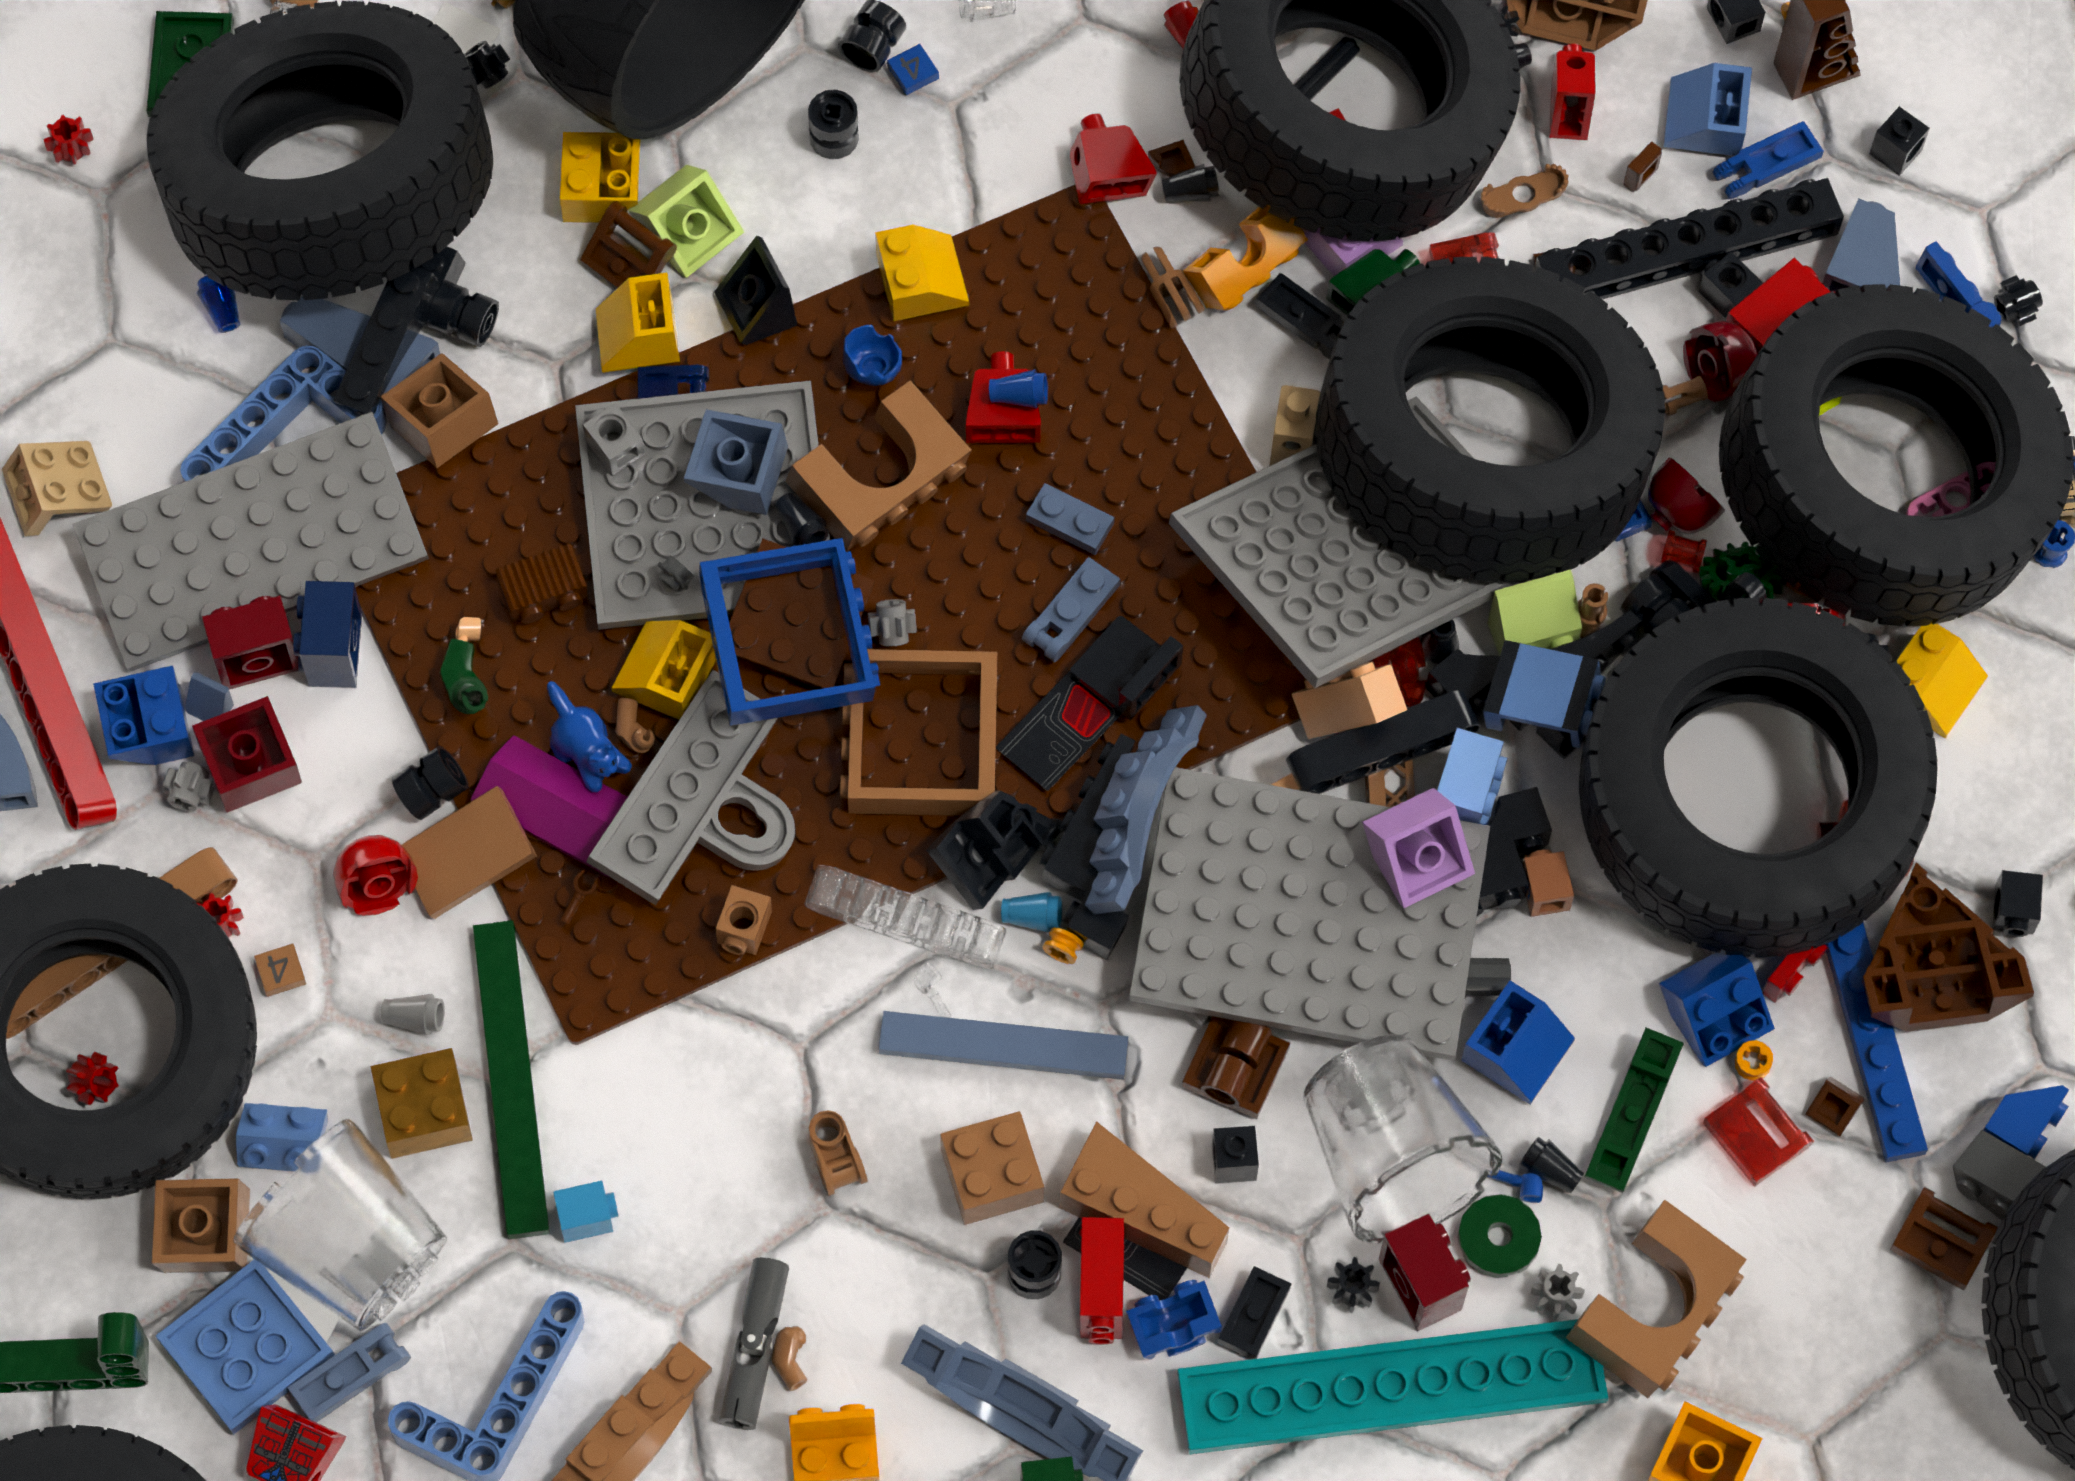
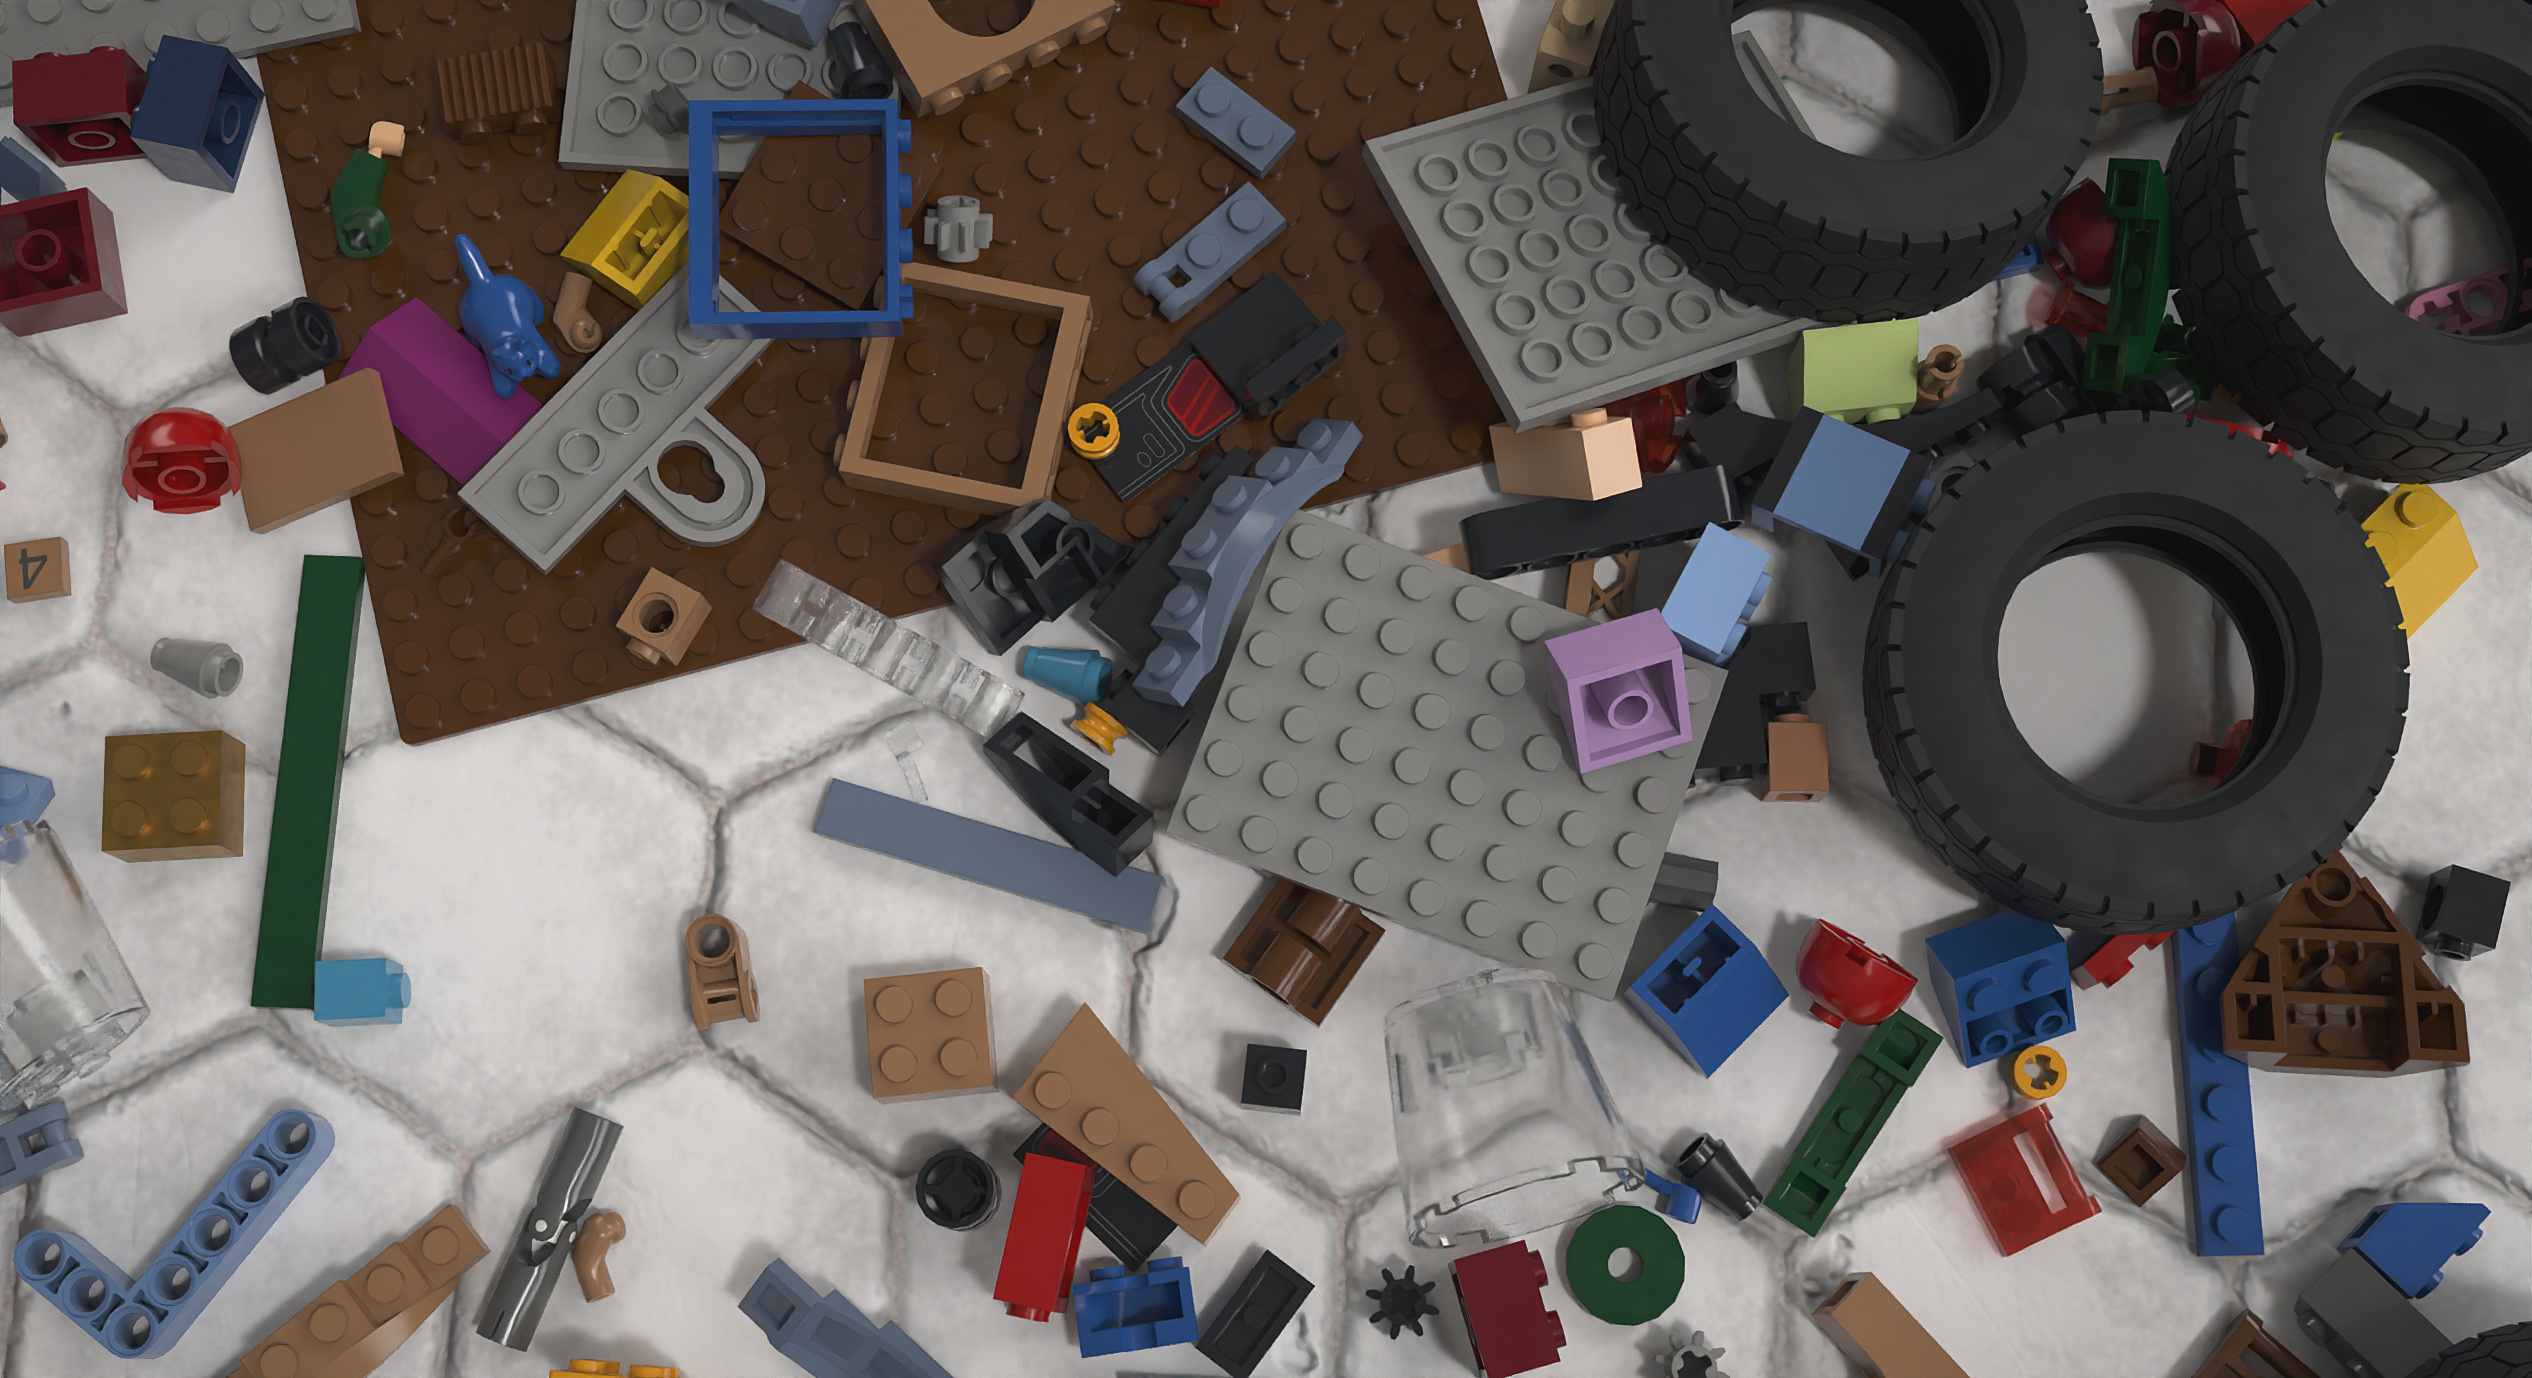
camera: 15 degrees right, 10 degrees up
(1025, 752) = (1101, 445): none -> light orange bush
(1054, 990) = (1071, 793): none -> black slope
(1612, 1017) = (1849, 978): none -> red cylinder
(1715, 516) = (2140, 275): none -> dark green slope

